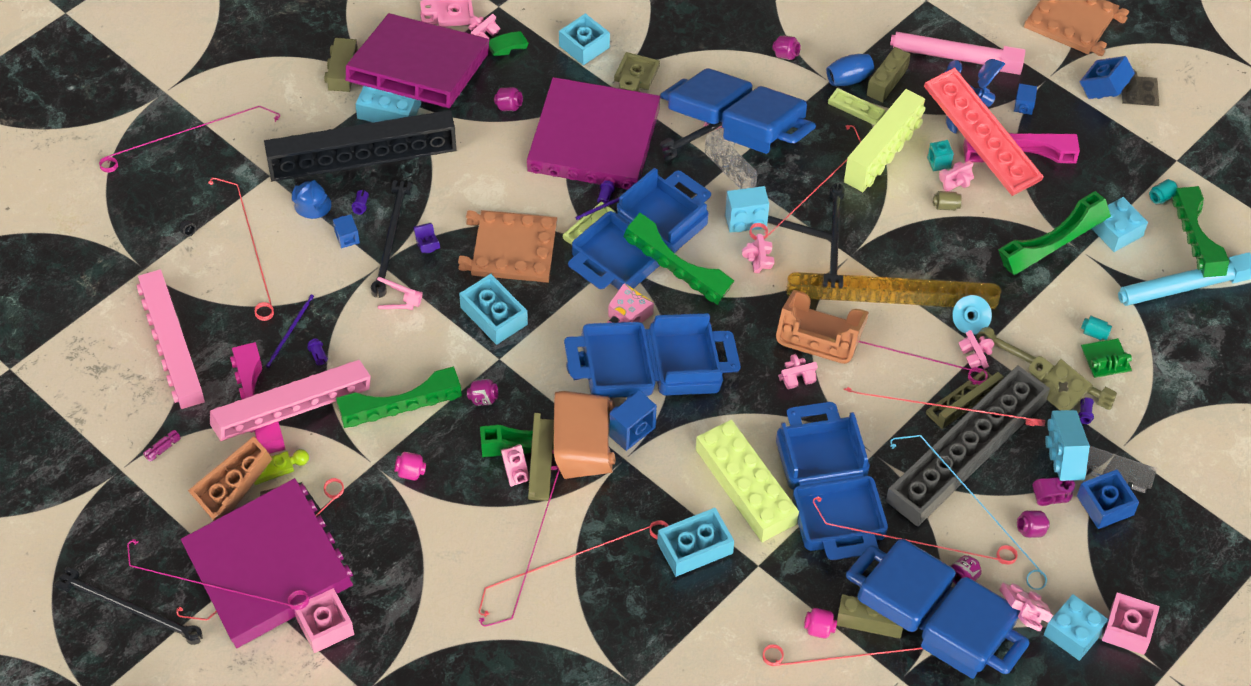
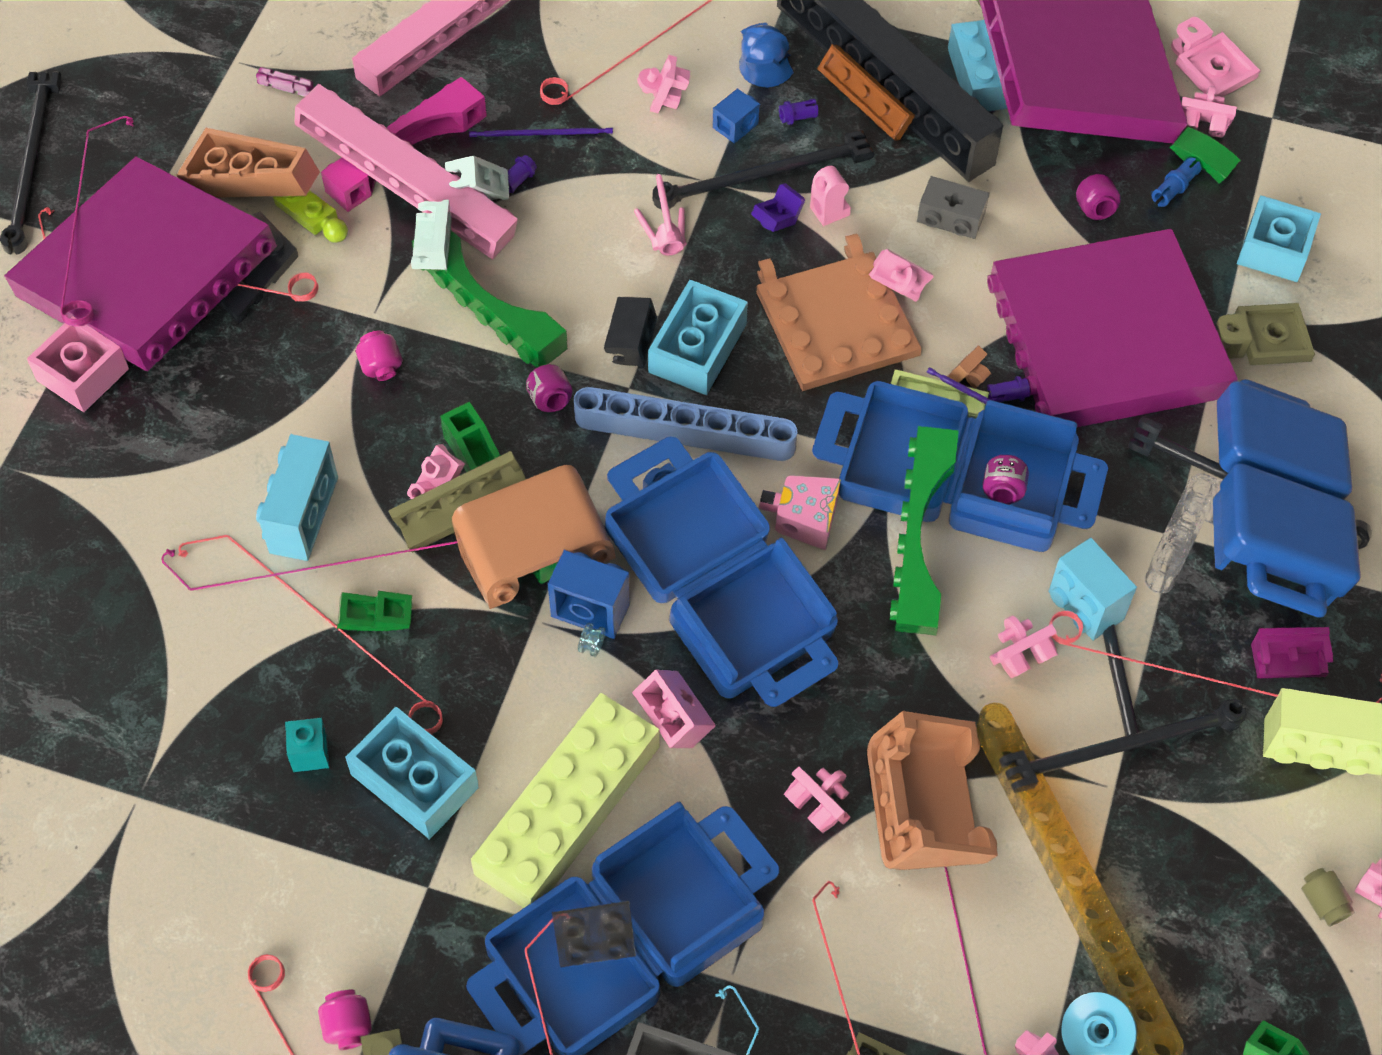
camera: 65 degrees right, 5 degrees up
(305, 252) = (663, 84): none -> bright pink hips
(321, 363) = (480, 176): none -> light aqua hinge
(350, 402) = (432, 236): none -> light aqua hinge
(369, 165) = (866, 92): none -> dark orange tile
(435, 210) = (829, 193): none -> bright pink leg
(467, 339) = (631, 331): none -> black hinge
(474, 163) = (952, 207): none -> dark grey brick
(492, 534) = (297, 497): none -> medium azure brick
(508, 202) = (900, 274): none -> bright pink hips
(518, 63) = (1176, 181): none -> blue pin
(543, 340) = (700, 421): none -> medium blue beam
(580, 530) = (369, 613): none -> green slope
(582, 201) = (971, 369): none -> nougat tile
(650, 587) = (307, 744): none -> teal brick
(655, 434) = (591, 640): none -> clear light blue bush
(670, 211) = (1005, 479): none -> magenta head
(719, 411) = (674, 709): none -> bright pink brick
(818, 152) = (1292, 652): none -> magenta hinge
(837, 487) = (594, 934): none -> clear smoke hinge

